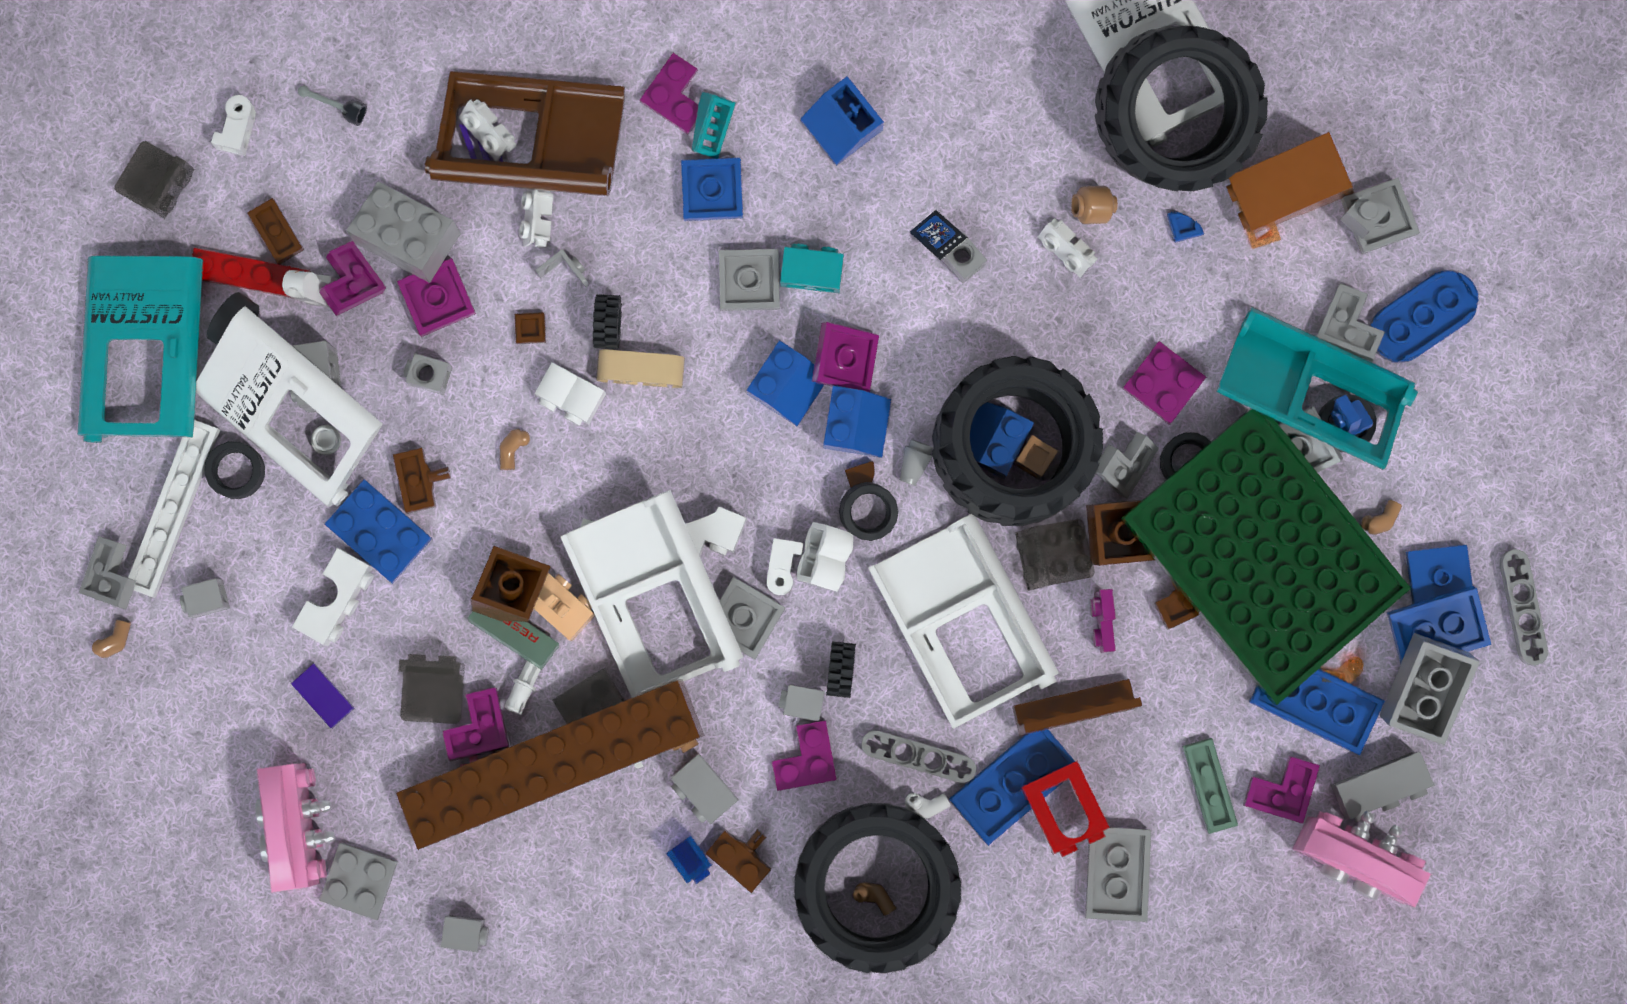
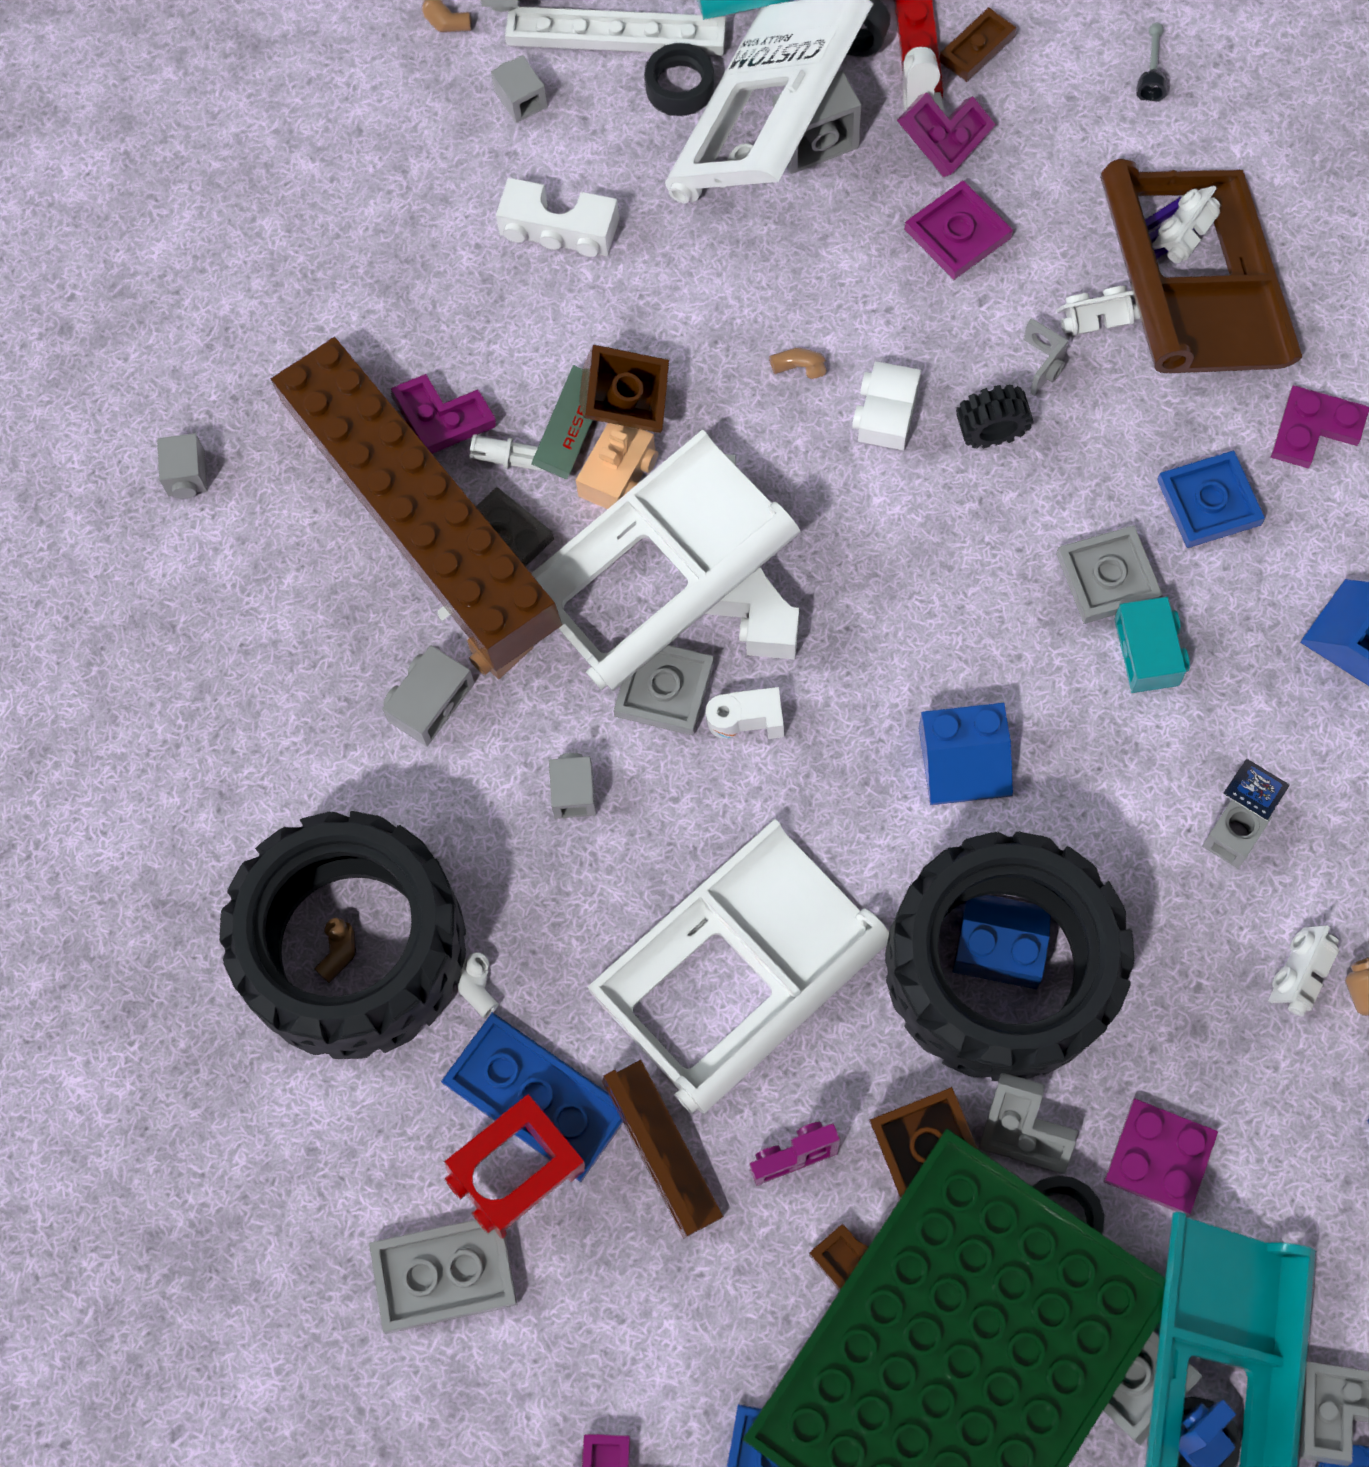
camera: 80 degrees right, 15 degrees down
(288, 834) = (266, 234): bright pink piece -> none
(322, 696) = (437, 242): dark purple tile -> none
(358, 881) = (223, 339): light grey plate -> none
(378, 531) = (652, 247): blue plate -> none
(403, 231) = (1025, 166): light grey brick -> none
(417, 480) = (727, 269): reddish brown plate -> none
(432, 689) = (475, 352): clear smoke bracket -> none
(439, 380) = (860, 258): light grey brick -> none
(530, 328) = (956, 343): reddish brown tile -> none
(636, 367) = (950, 477): tan beam -> none
(690, 860) = (332, 702): clear blue brick -> none
(705, 112) = (1321, 457): teal slope -> none
(740, 858) = (349, 767): reddish brown plate -> none
(785, 384) = (988, 654): blue slope -> none
(813, 766) = (498, 826): magenta plate -> none
(825, 556) = (773, 760): white brick -> none
(841, 669) = (628, 817): black tyre -> none
(845, 357) = (1048, 714): magenta plate -> none
(860, 474) = (893, 783): reddish brown tile -> none
(890, 516) = (826, 780): black tyre -> none
(915, 460) = (930, 842): light grey cone -> none
(917, 760) = (535, 957): light grey beam -> none
(1035, 457) = (996, 994): medium nougat brick -> none
(1054, 554) = (870, 1065): clear smoke bracket -> none
(1210, 785) = (601, 1378): sand green tile -> none

